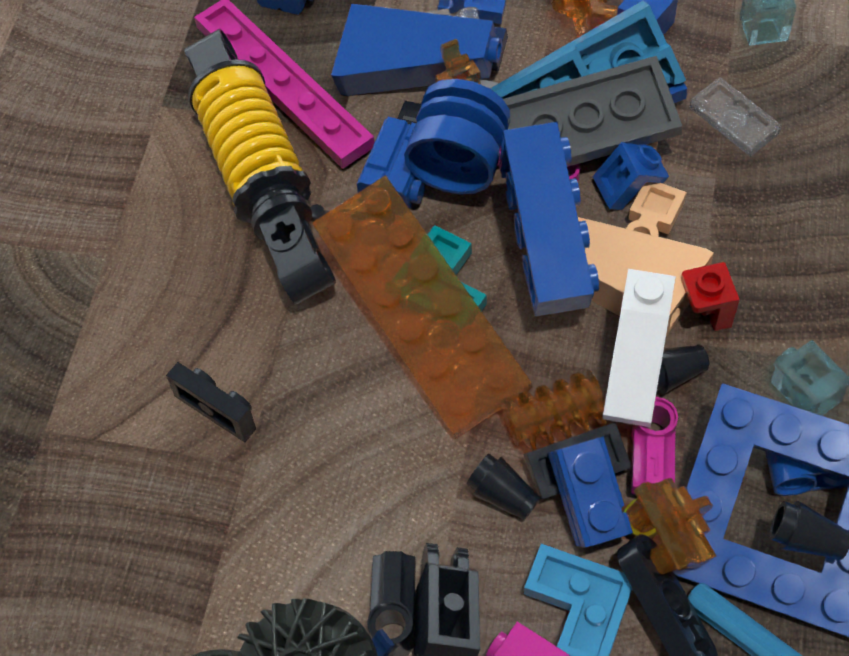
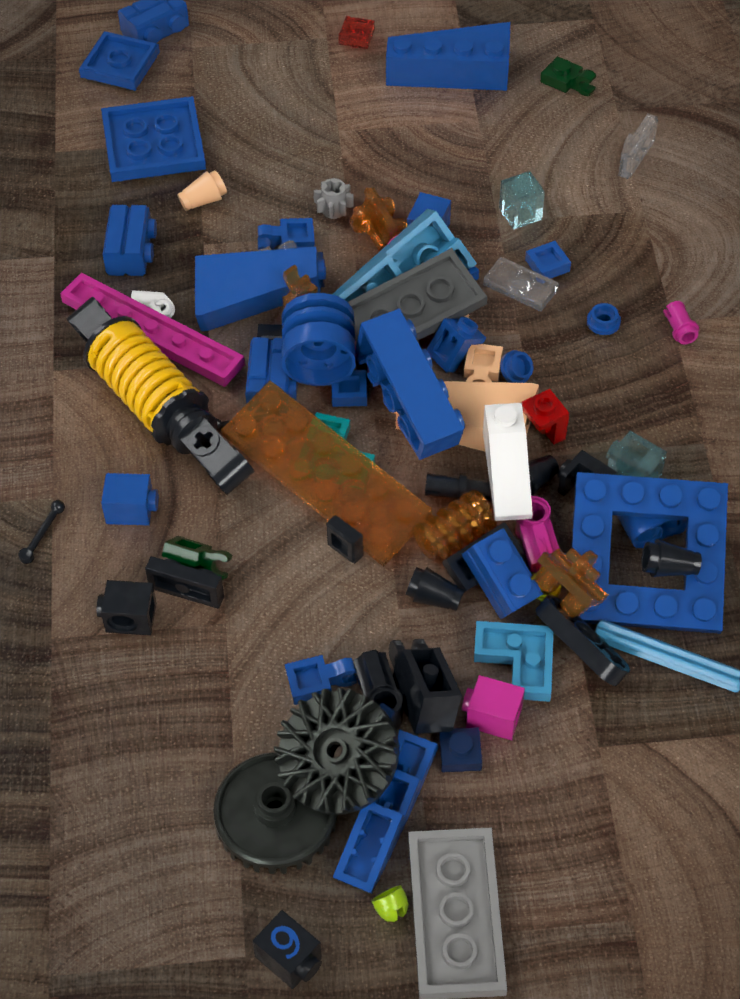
camera: 20 degrees left, 5 degrees down
(53, 321) = (26, 554): none -> black hinge
(136, 417) = (127, 607): none -> black brick
(183, 282) = (128, 499): none -> blue brick
(233, 367) = (193, 553): none -> dark green plate
(299, 48) = (156, 301): none -> white arm
(319, 565) = (314, 675): none -> blue plate
(415, 394) = (344, 539): none -> black tile
(485, 207) = (351, 390): none -> blue plate
(572, 358) = (455, 486): none -> black pin
(695, 221) = (516, 366): none -> blue plate
(738, 373) = (583, 463): none -> black bracket
(778, 94) = (548, 260): none -> blue plate
(827, 175) = (603, 319): none -> blue plate

